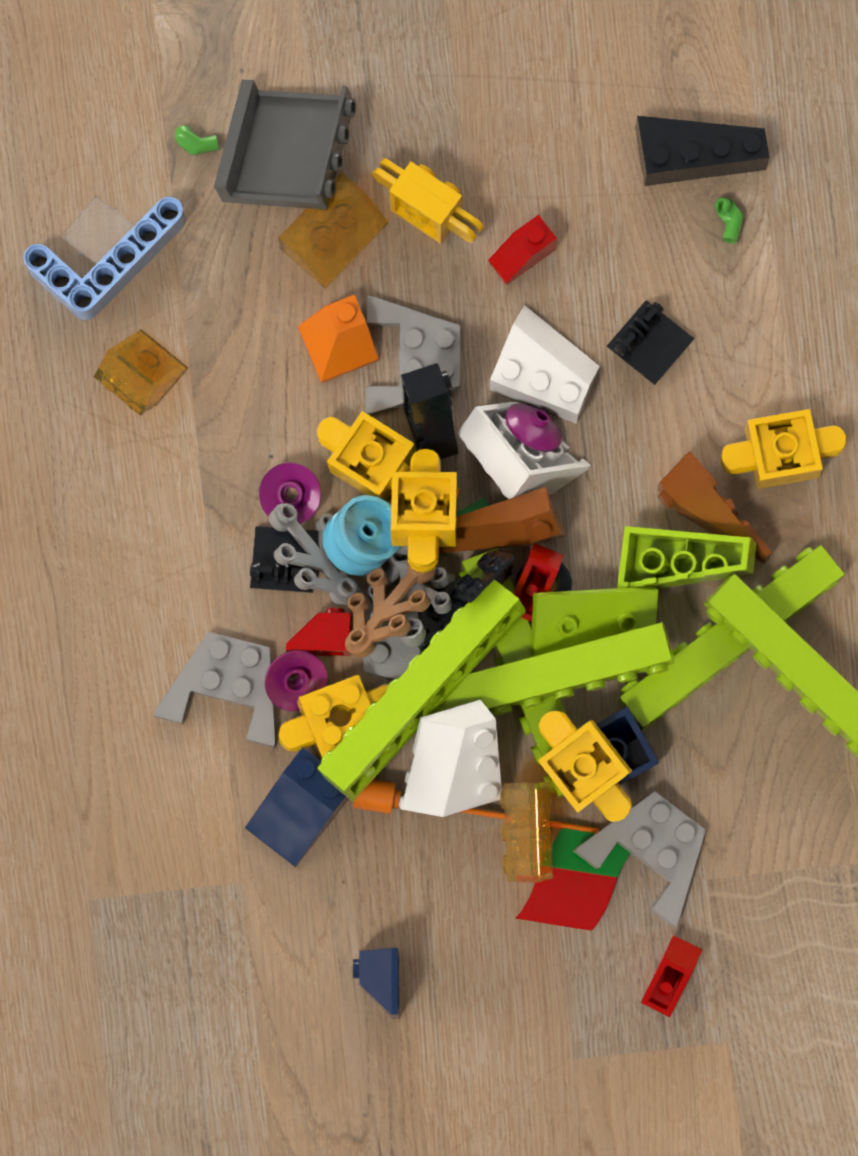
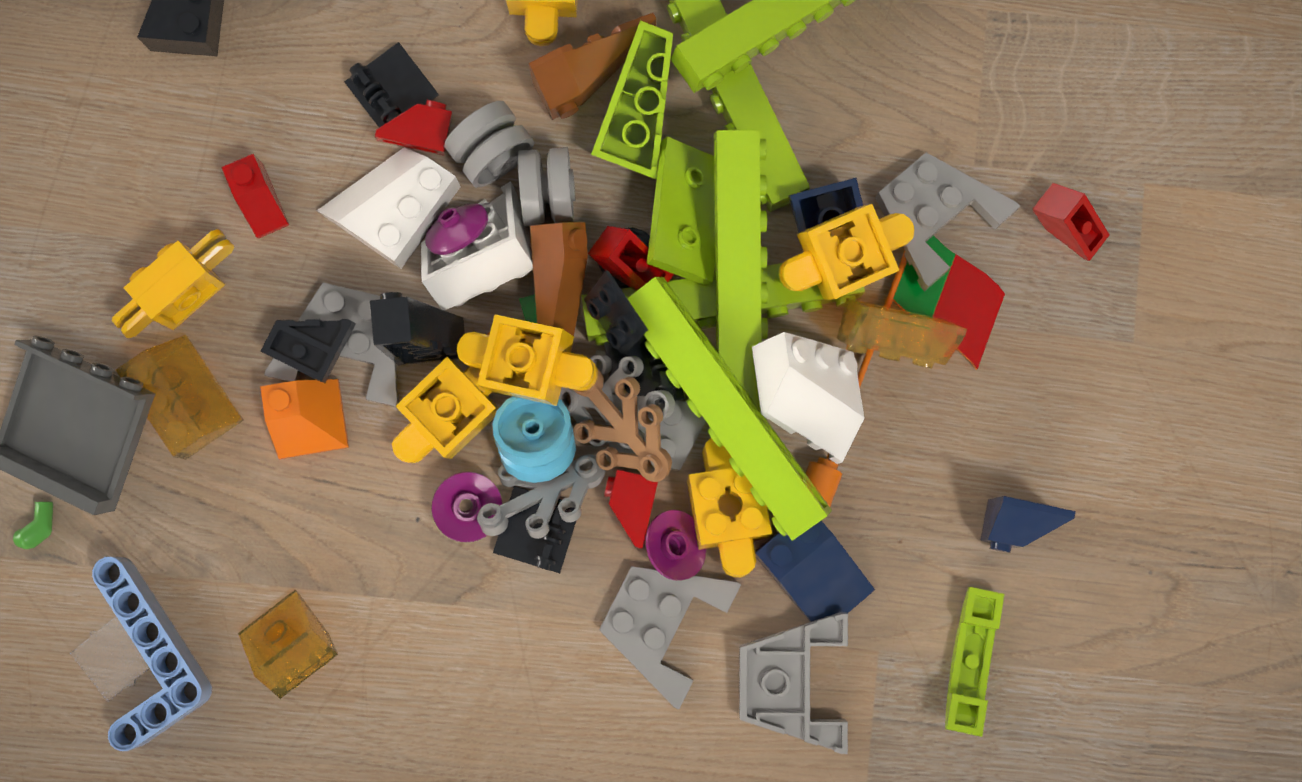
camera: 80 degrees left, 5 degrees up
(192, 796) = (777, 682): none -> light grey wing
(249, 964) = (972, 660): none -> lime slope
(400, 326) = (308, 345): none -> black wing
(587, 494) = (543, 187): none -> light grey wheel
(614, 436) = (488, 143): none -> light grey wheel
(616, 375) = (419, 128): none -> red slope

